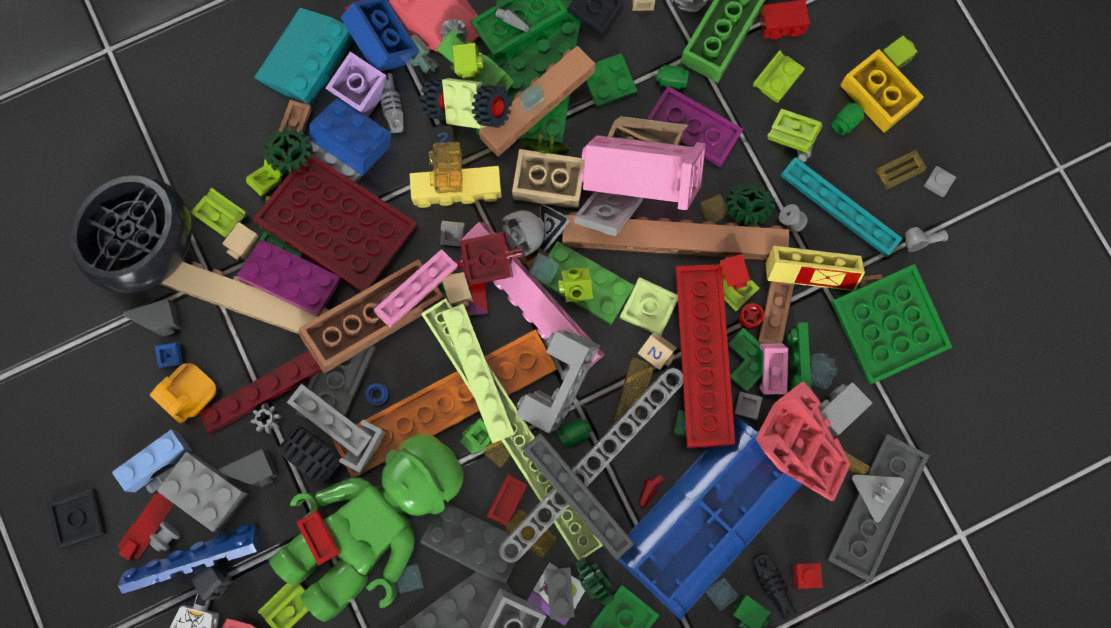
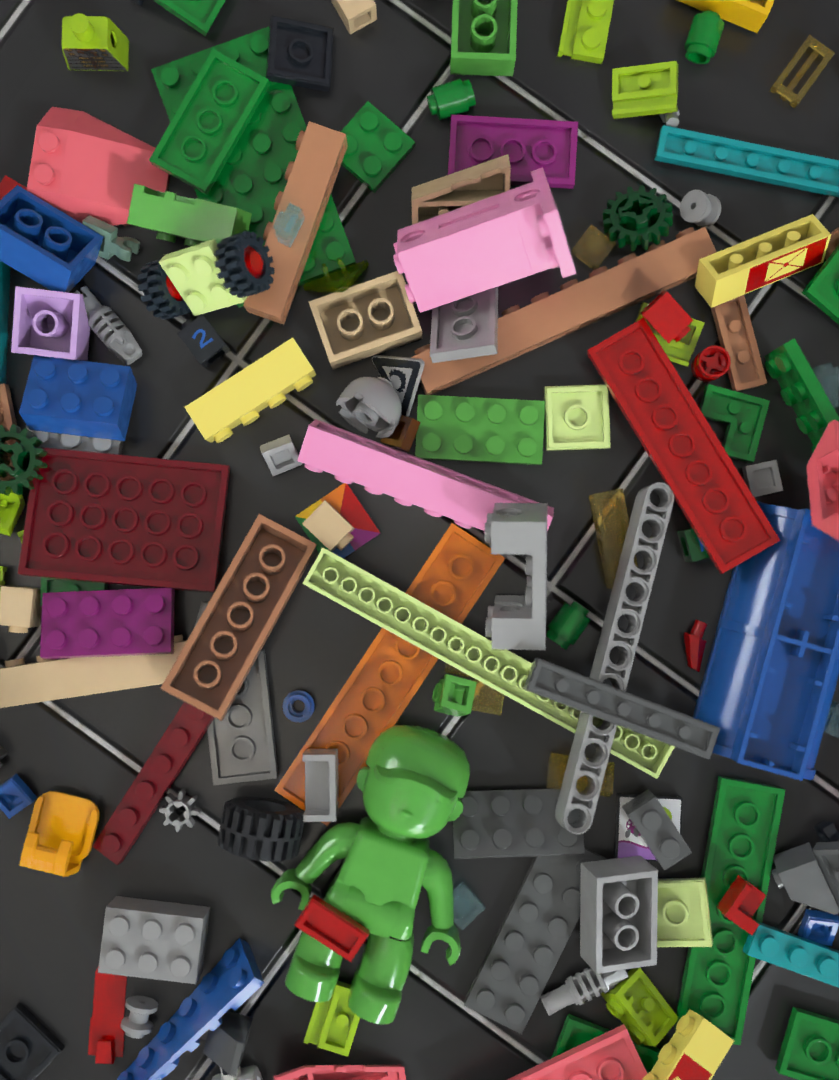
camera: 25 degrees left, 10 degrees up
(141, 467) = (68, 936): light blue arch -> none
(159, 479) = (93, 950): light grey bar -> none
(252, 469) = (200, 880): dark grey slope -> none
(330, 420) = (262, 774): light grey plate -> none
(415, 288) = (277, 555): bright pink plate -> none
(447, 167) = (229, 375): clear yellow brick -> none
(459, 26) = (127, 179): light grey gear -> none
(467, 61) = (178, 219): lime brick -> none
(478, 373) = (414, 620): yellowish green plate -> none
(487, 258) = (345, 468): dark red plate -> none
(507, 500) = (529, 749): red tile -> none
(511, 18) = (203, 129): light grey bar -> none
(544, 268) = (423, 441): clear light blue plate -> none
(576, 284) = (476, 441): lime brick -> none
(594, 581) = (690, 793): dark green gear -> none
(658, 351) = (618, 469): tan brick -> none
(774, 368) = (776, 416): bright pink panel -> none

